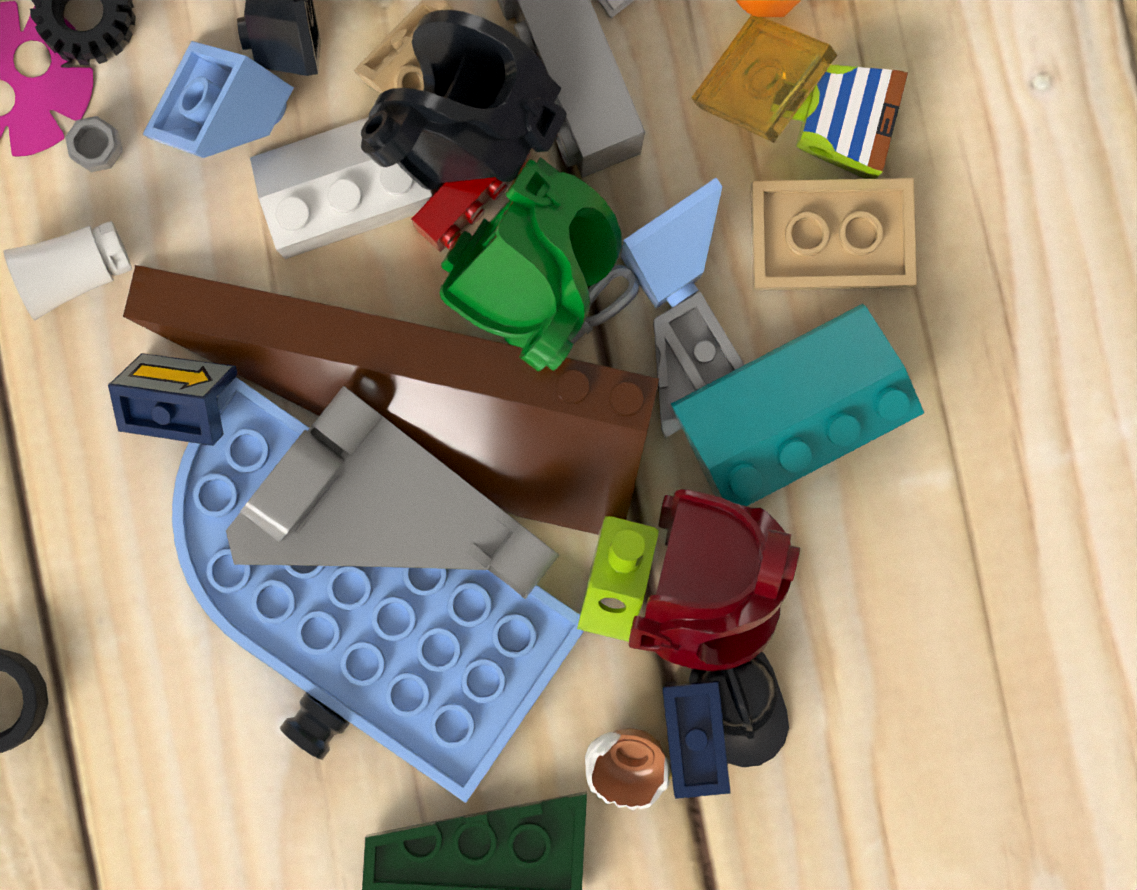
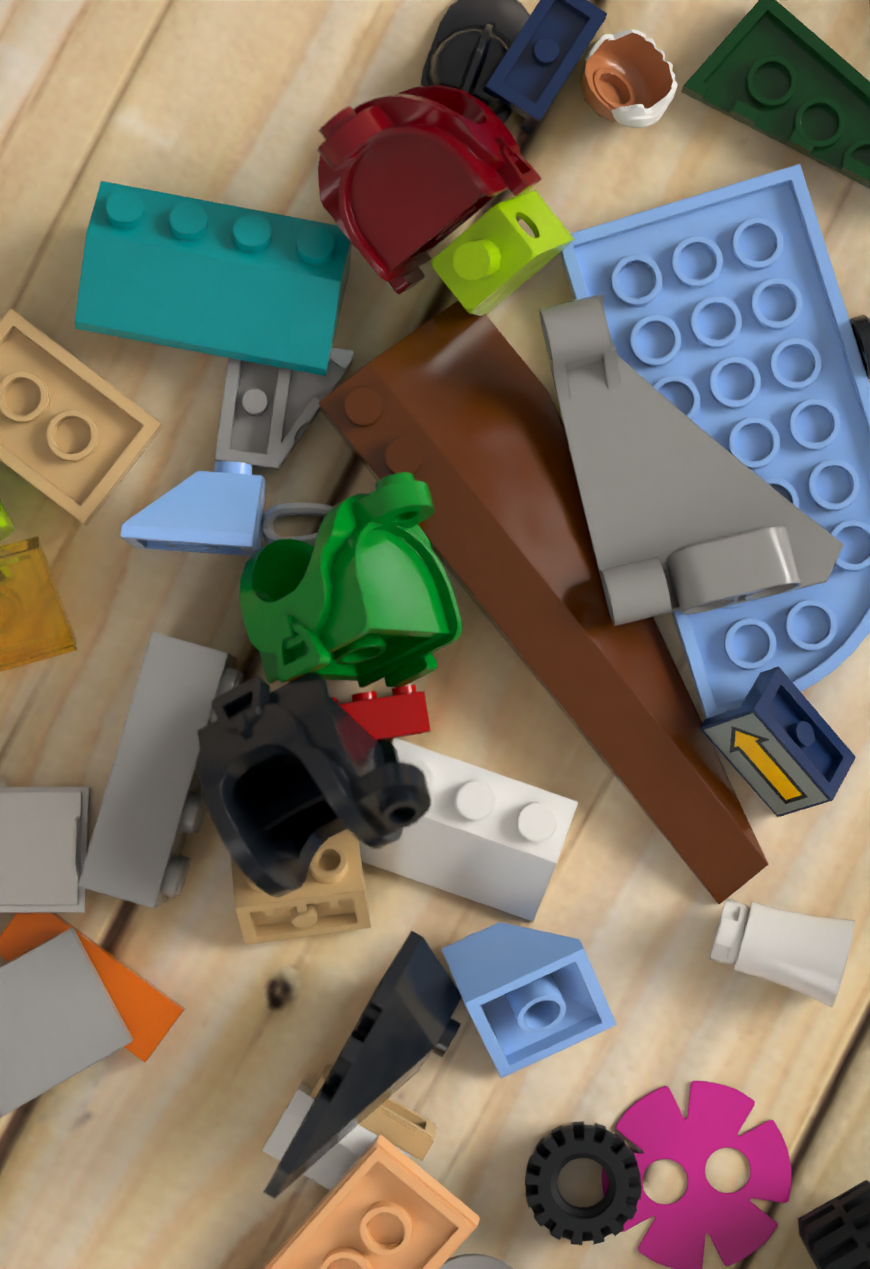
camera: 135 degrees left, 0 degrees up
(94, 144) = (670, 1048): light grey tile -> none

